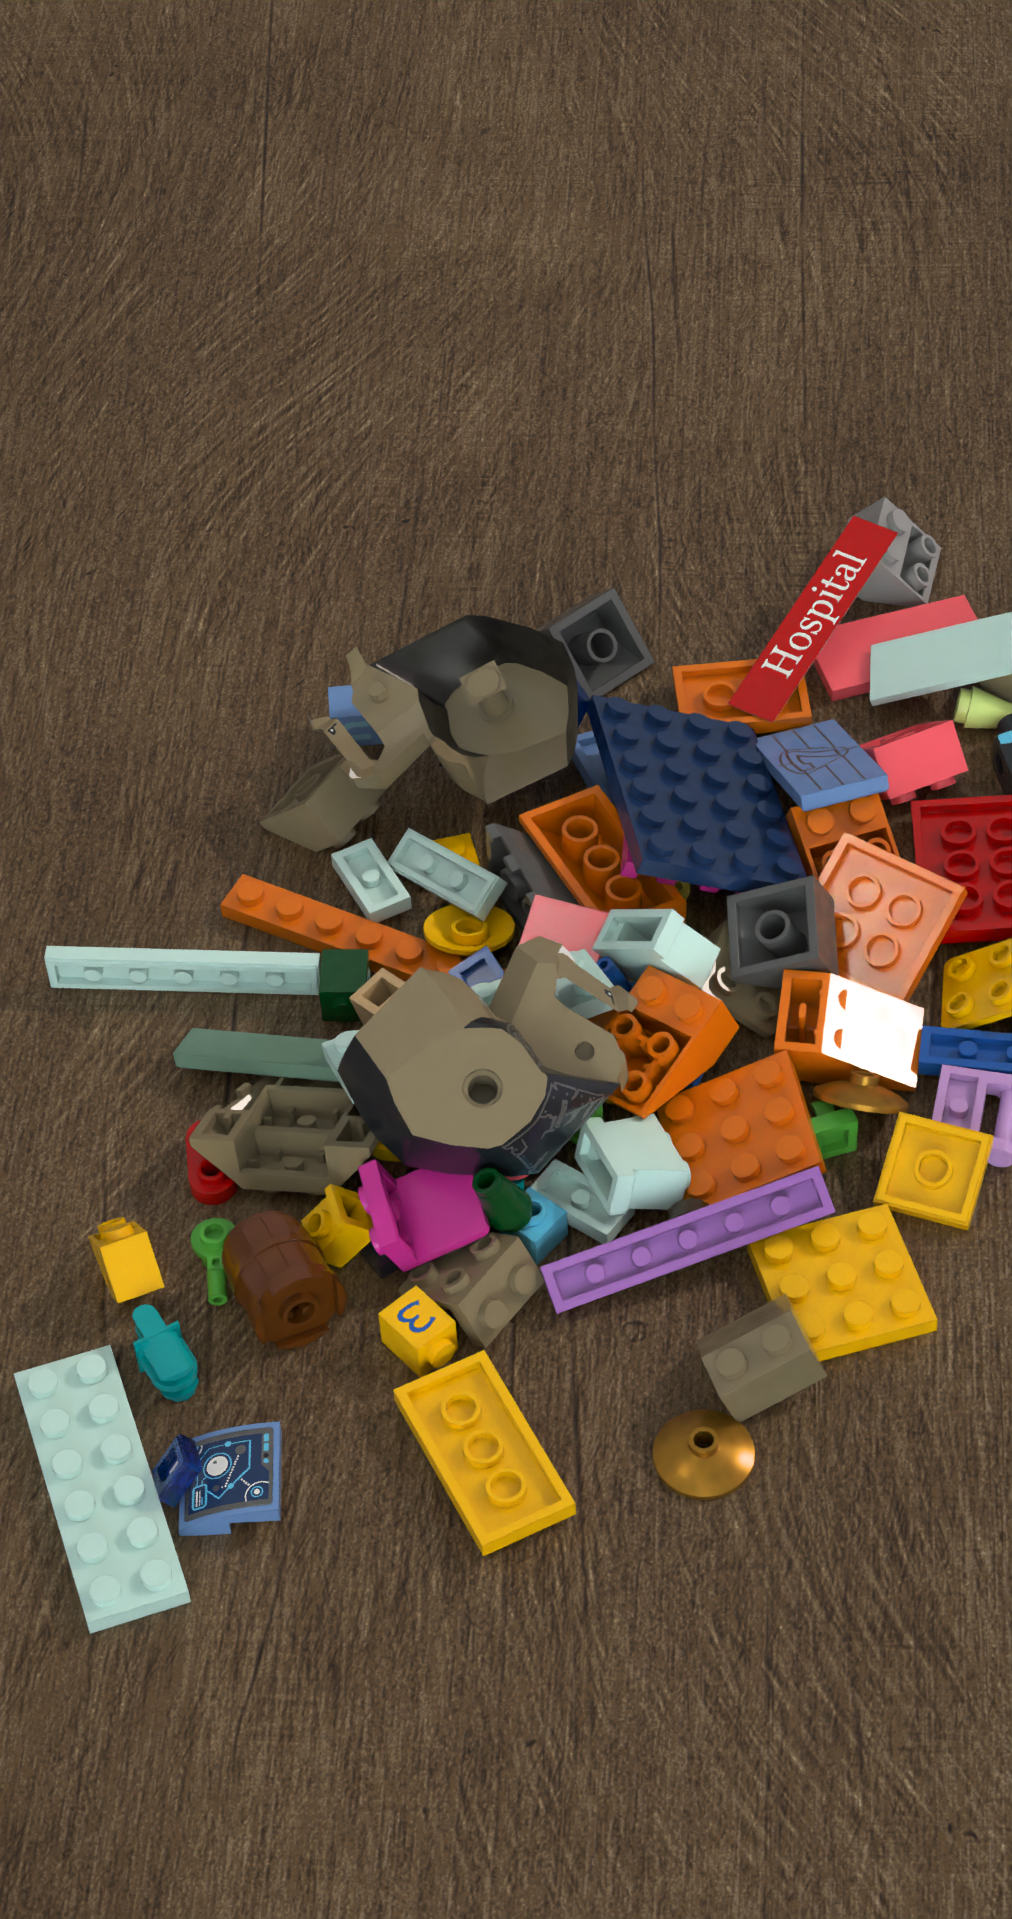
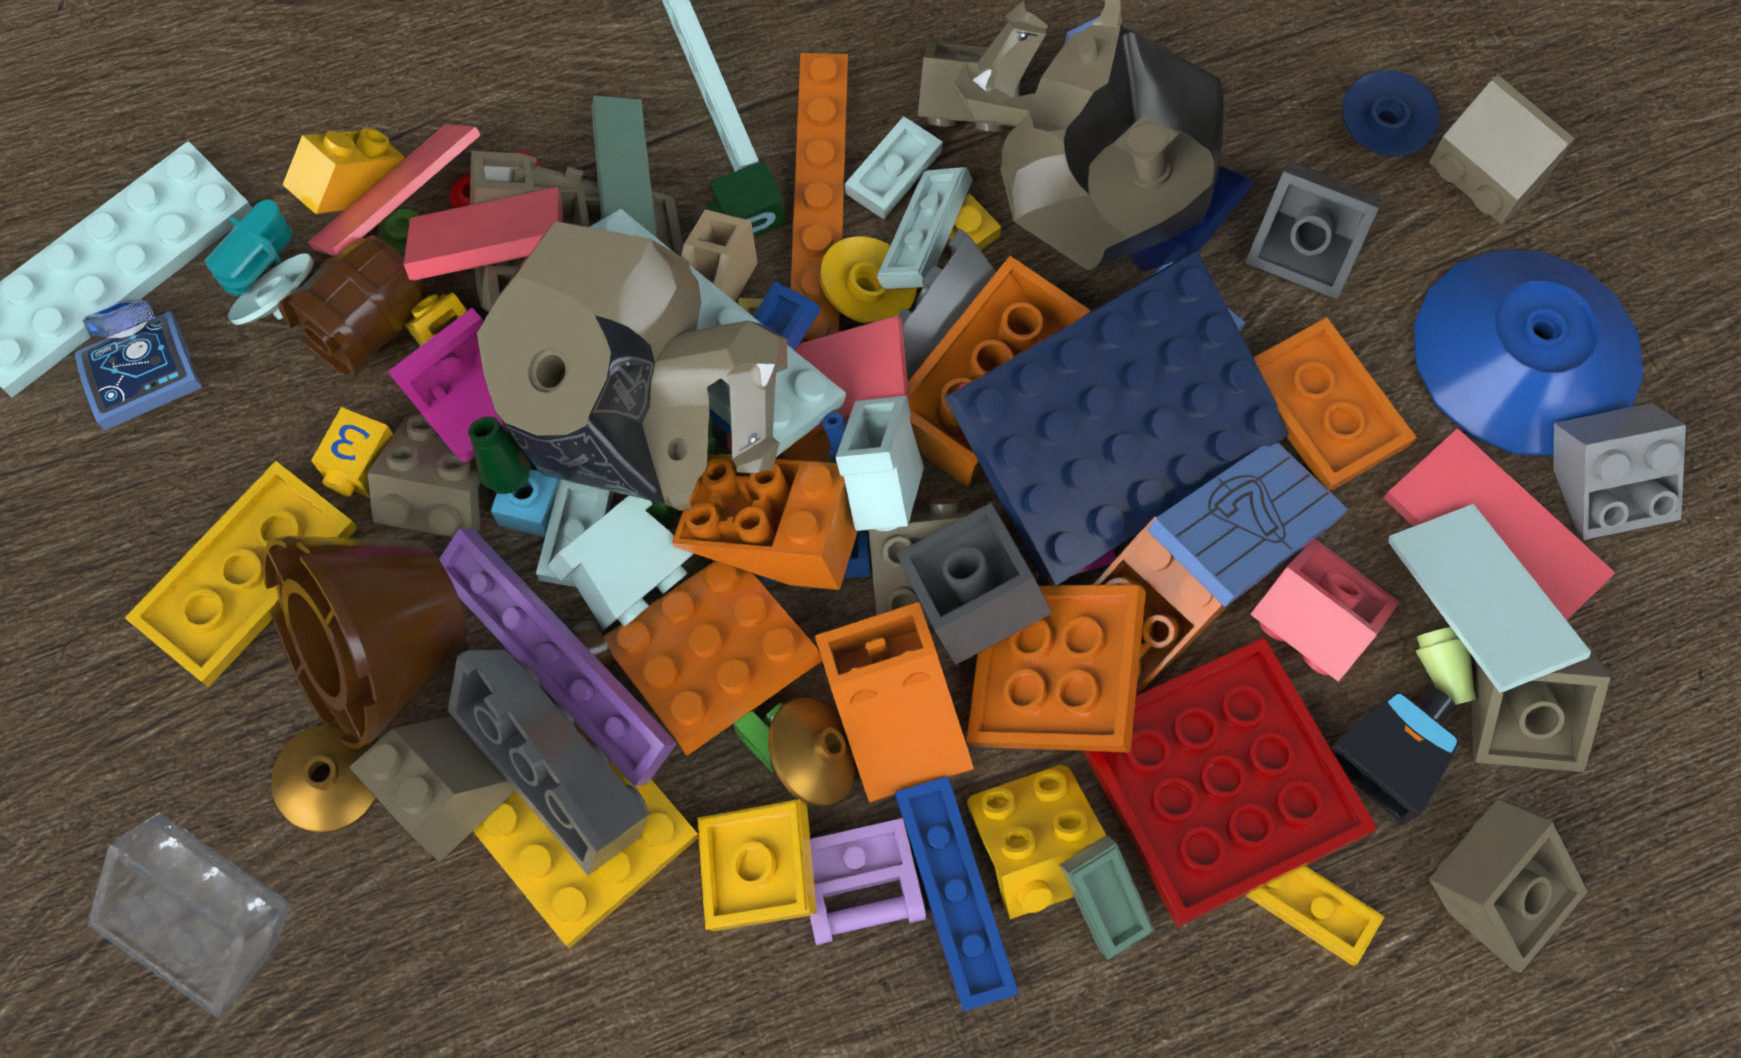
camera: 60 degrees right, 20 degrees up
(178, 1221) = (394, 188): none -> coral piece
(222, 1341) = (271, 288): none -> light aqua dish
(282, 1146) = (479, 233): none -> coral tile
(521, 565) = (1394, 98): none -> dark blue dish
(599, 511) = (1501, 150): none -> slope
(616, 1386) = (362, 625): none -> reddish brown cone
(746, 570) = (1503, 379): none -> blue dish
(782, 1575) = (186, 912): none -> clear slope
(785, 1256) = (545, 757): none -> dark grey wedge
(812, 619) = (1466, 427): red sticker -> none

